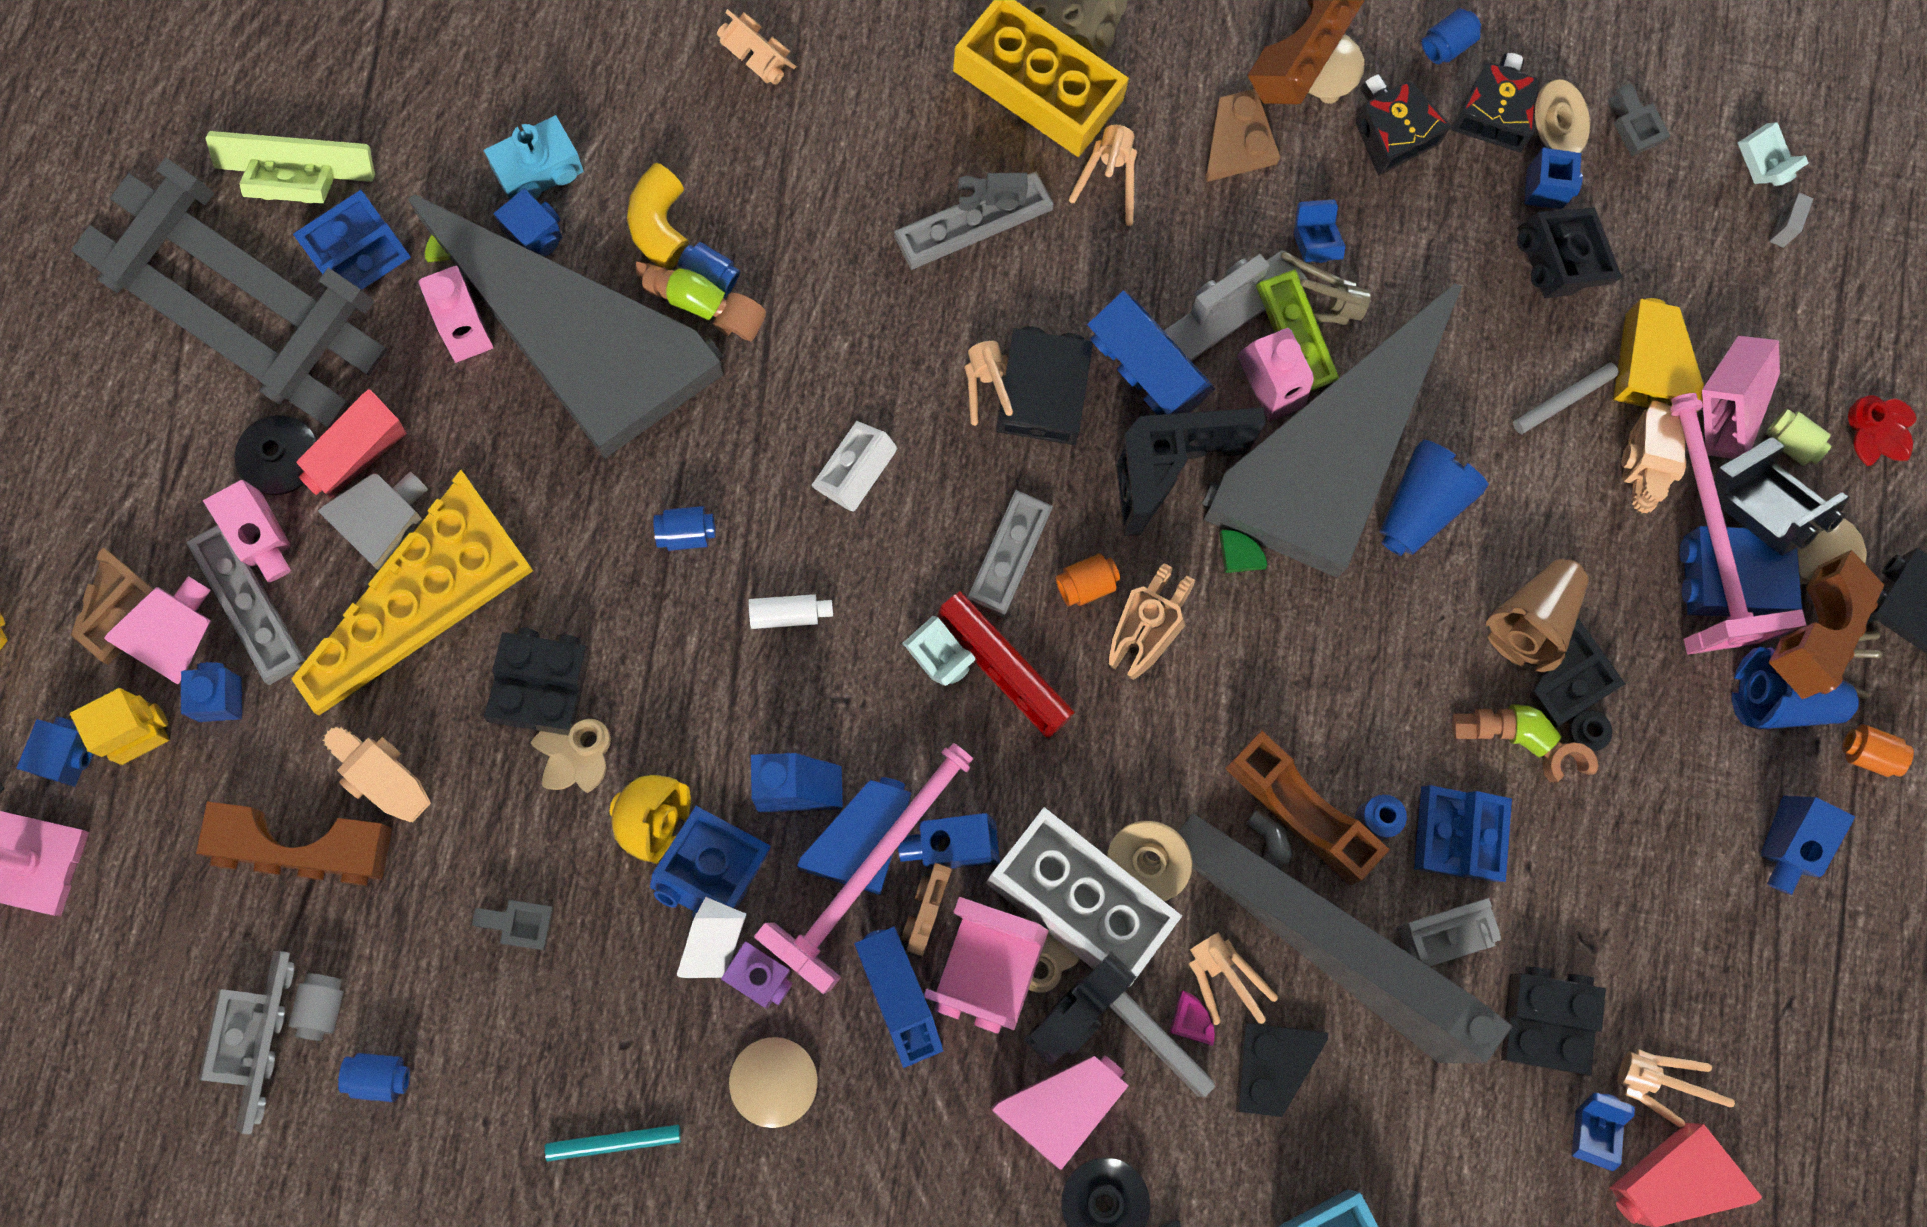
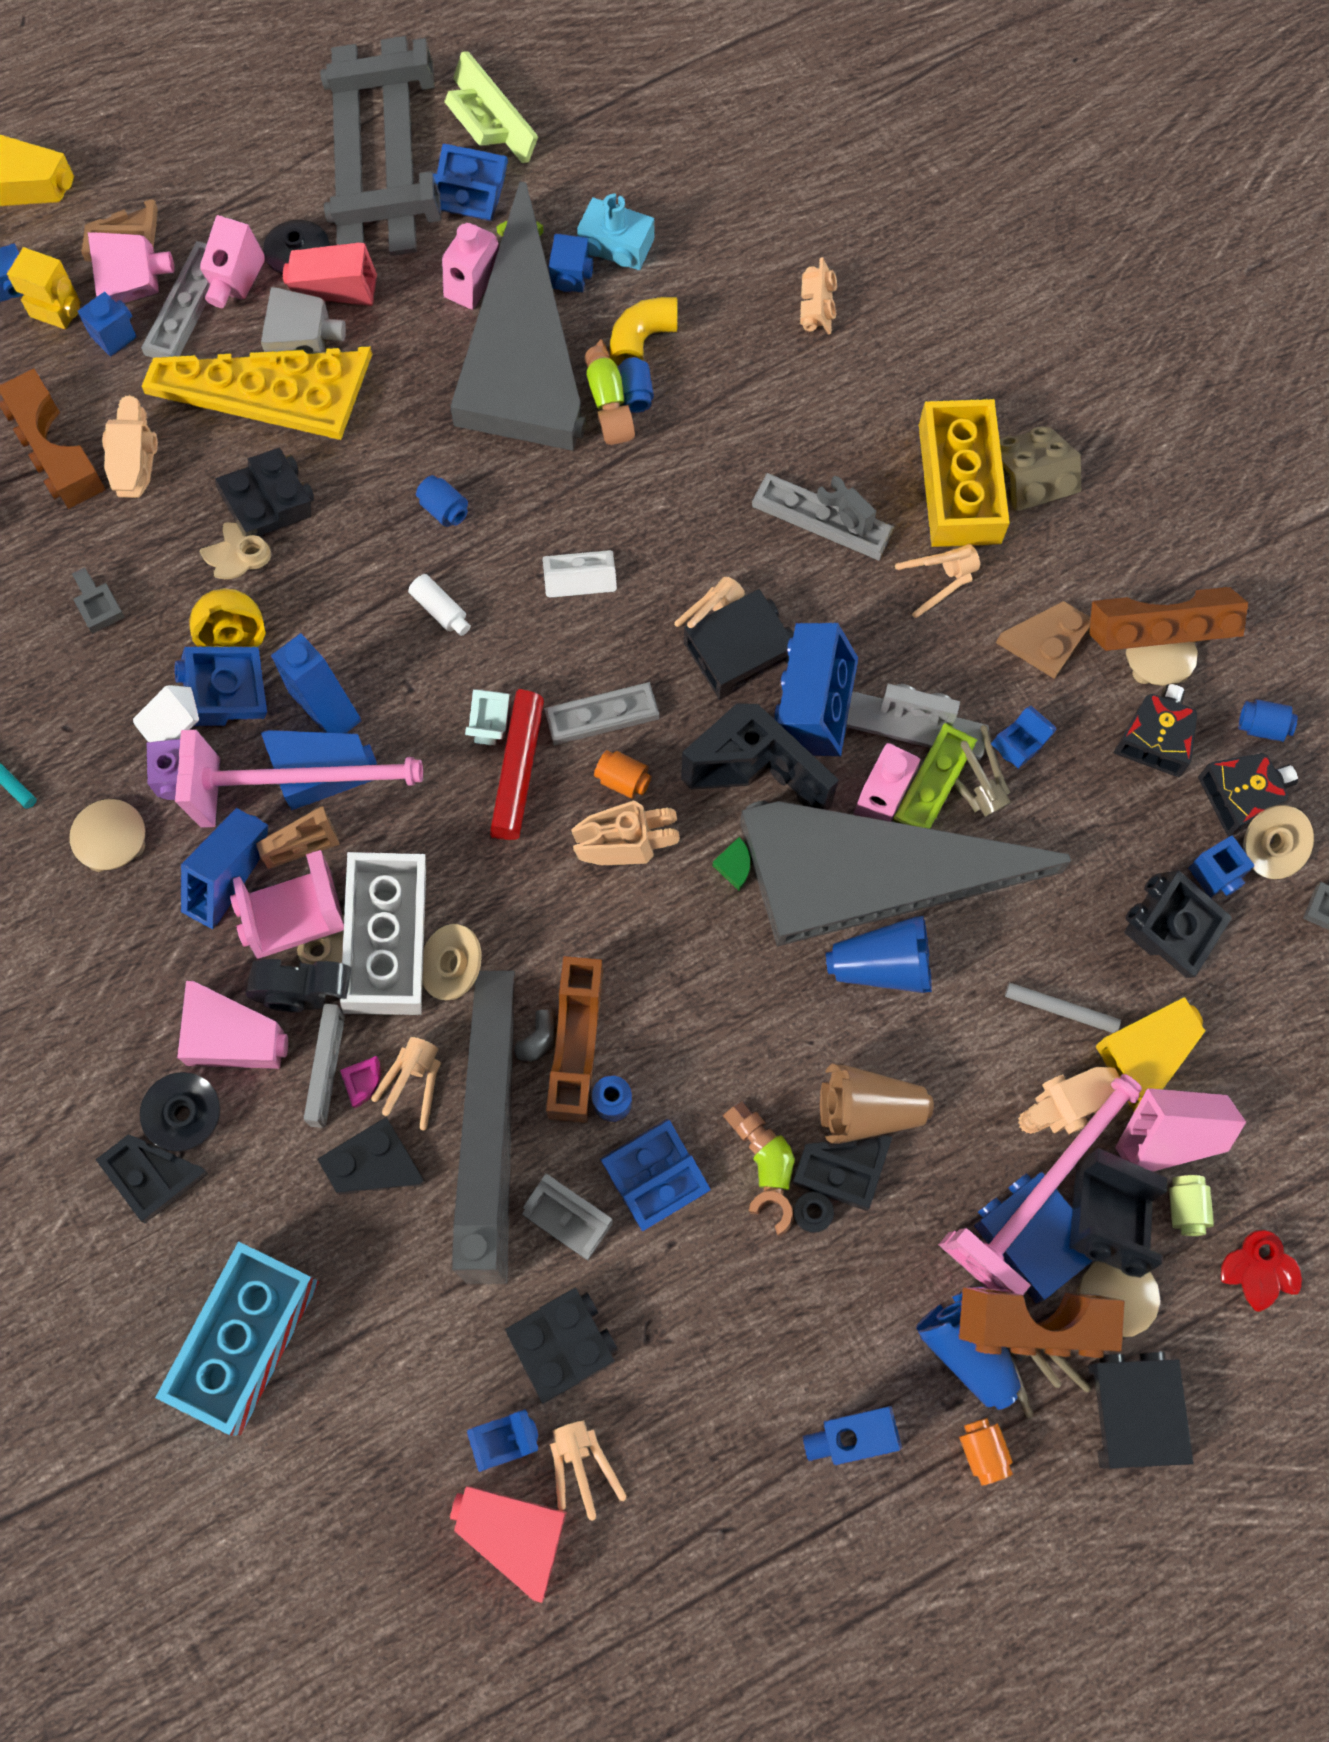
camera: 60 degrees right, 5 degrees down
(971, 842) = (359, 820): blue torso -> none

